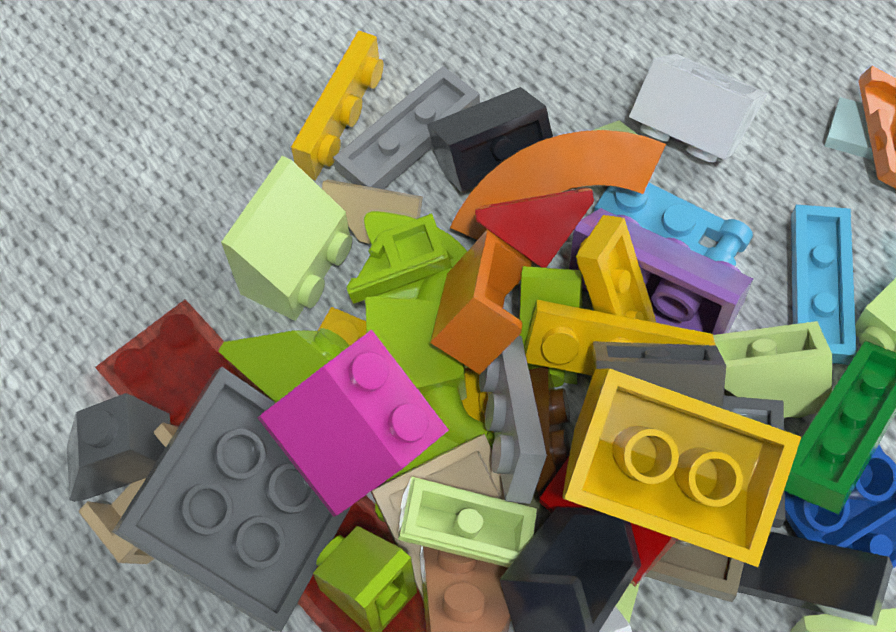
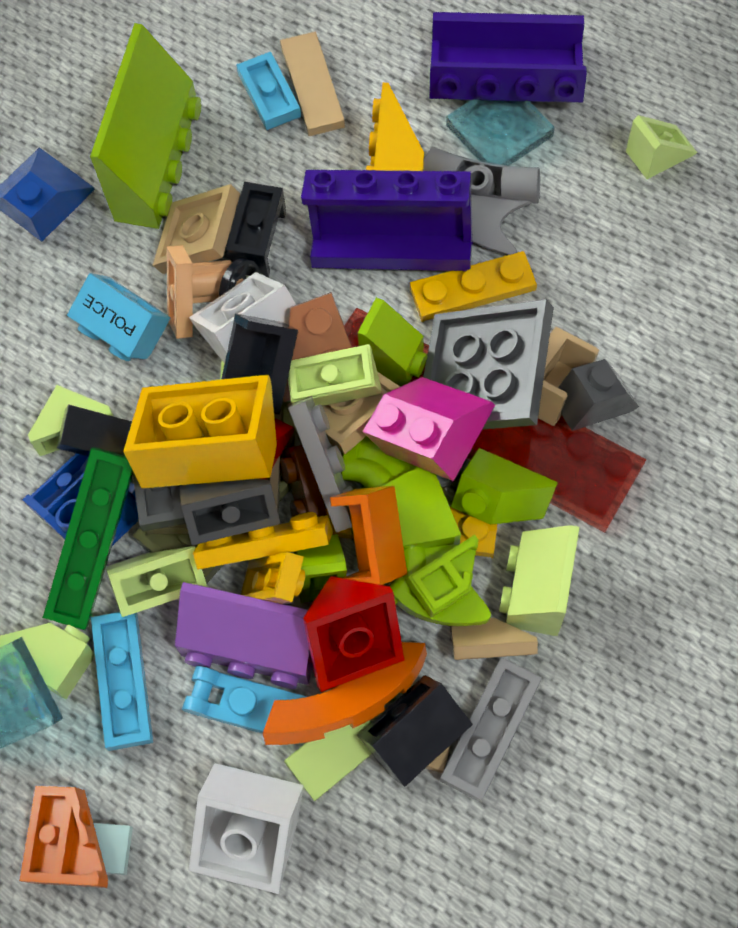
camera: 165 degrees right, 5 degrees up
(338, 105) = (556, 734): yellow plate -> none

